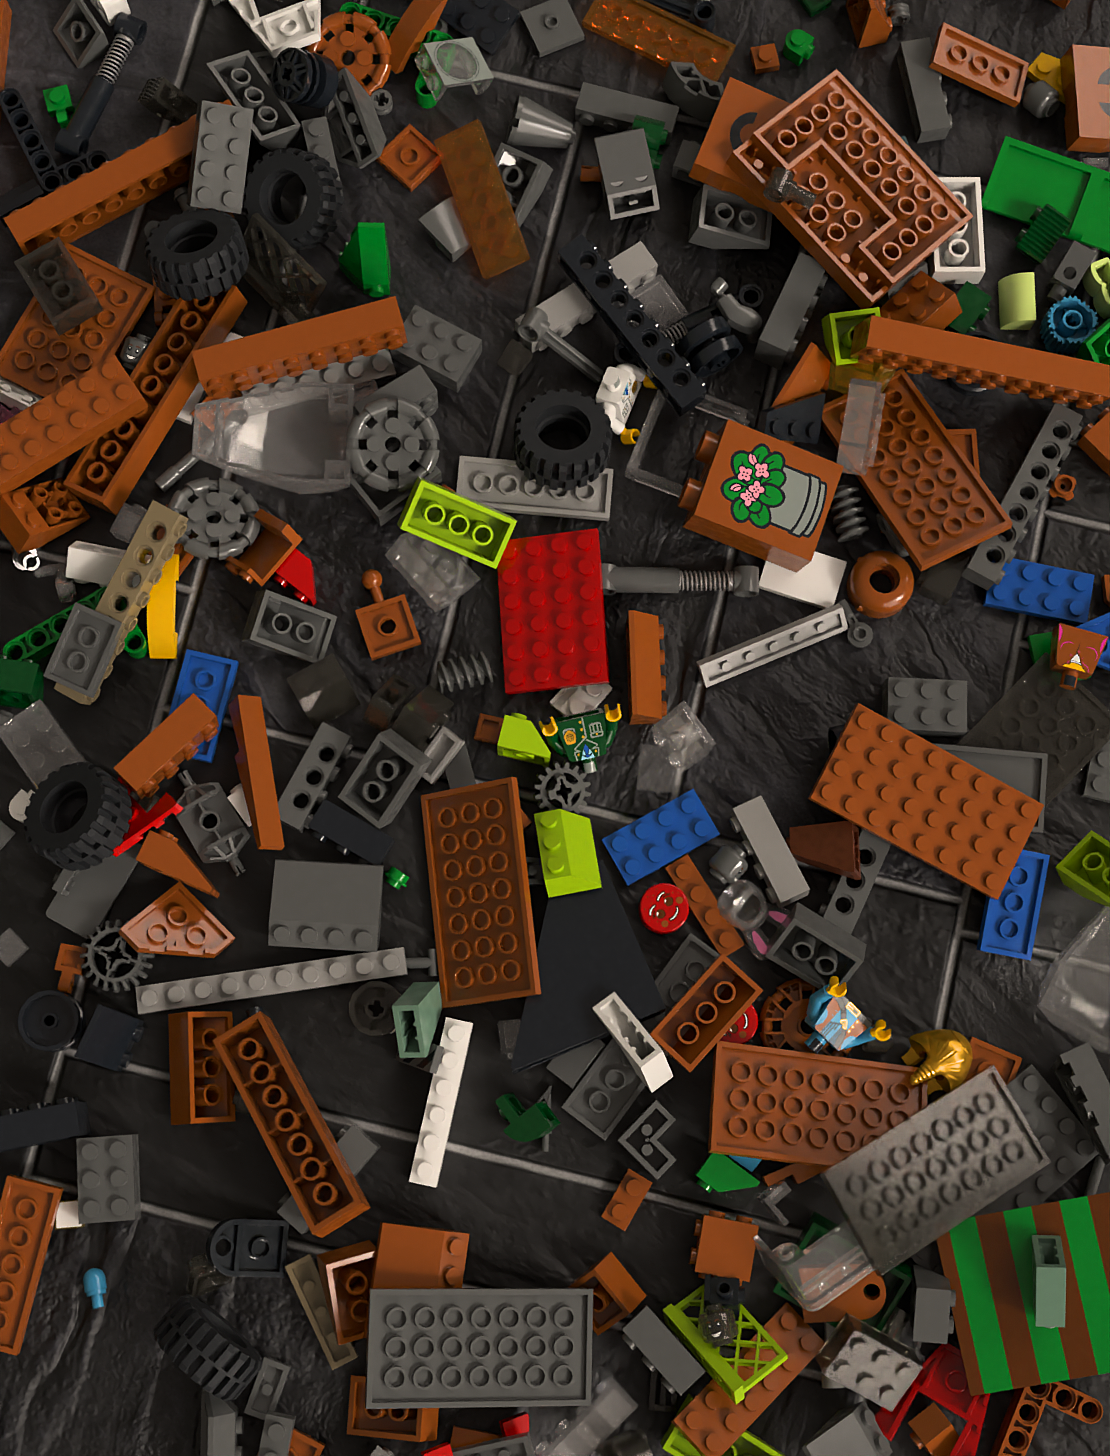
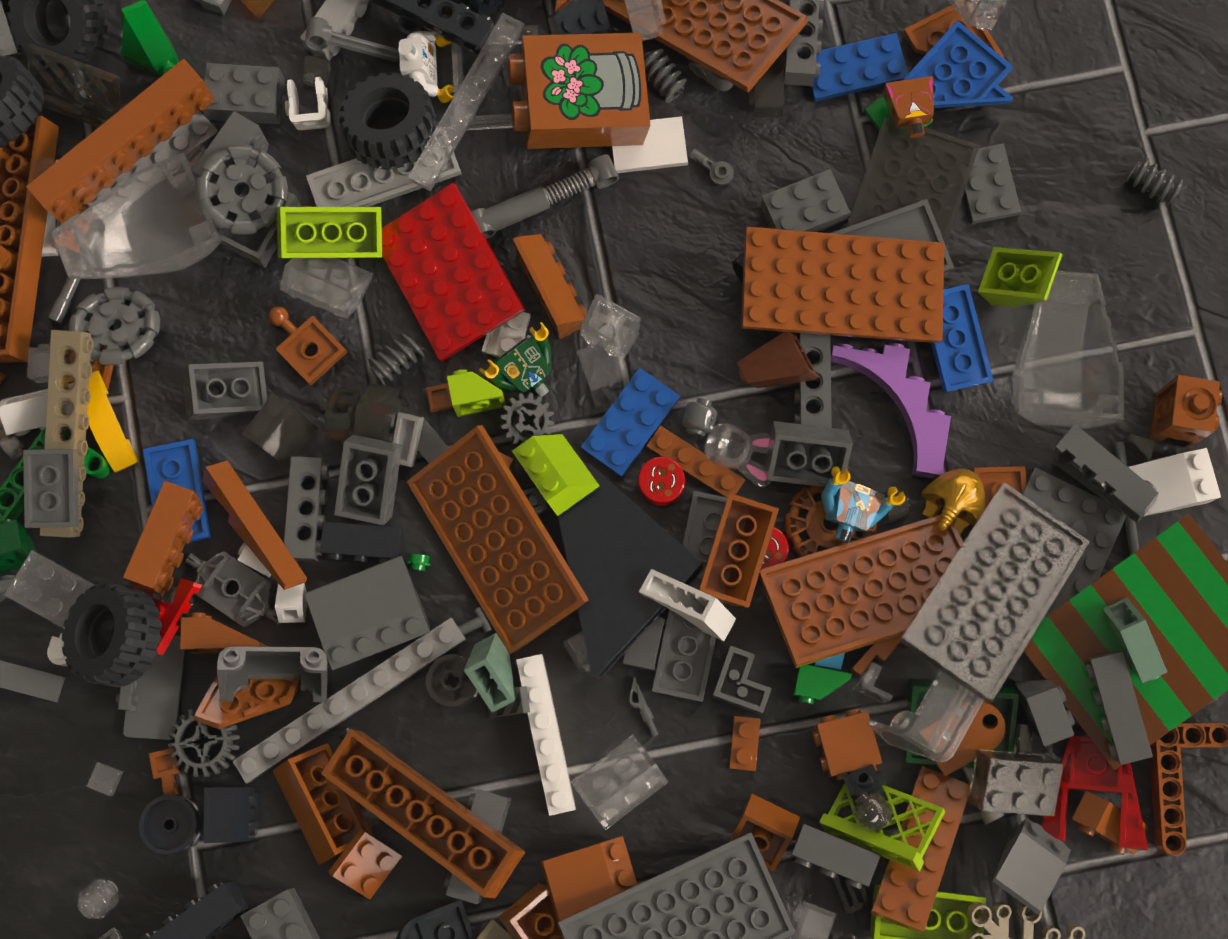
camera: 15 degrees left, 0 degrees up
(187, 900) = (244, 663): none -> dark grey windscreen
(215, 1144) = (365, 863): none -> dark orange plate
(258, 864) = (291, 604): none -> white brick
(266, 551) = (174, 333): dark orange panel -> none
(297, 574) = (210, 340): red slope -> none
(487, 404) = (312, 120): none -> white piece
(489, 1180) = (619, 782): none -> clear slope
(525, 1124) = (629, 719): dark green brick -> none
(645, 455) = (466, 102): none -> clear plate
(769, 852) = (730, 391): light grey brick -> none
(772, 645) = (650, 215): light grey plate -> none
(870, 601) = (714, 139): dark orange piece -> none
(933, 903) = (888, 370): none -> medium lavender arch
(1002, 1339) = (1119, 707): none -> dark grey brick

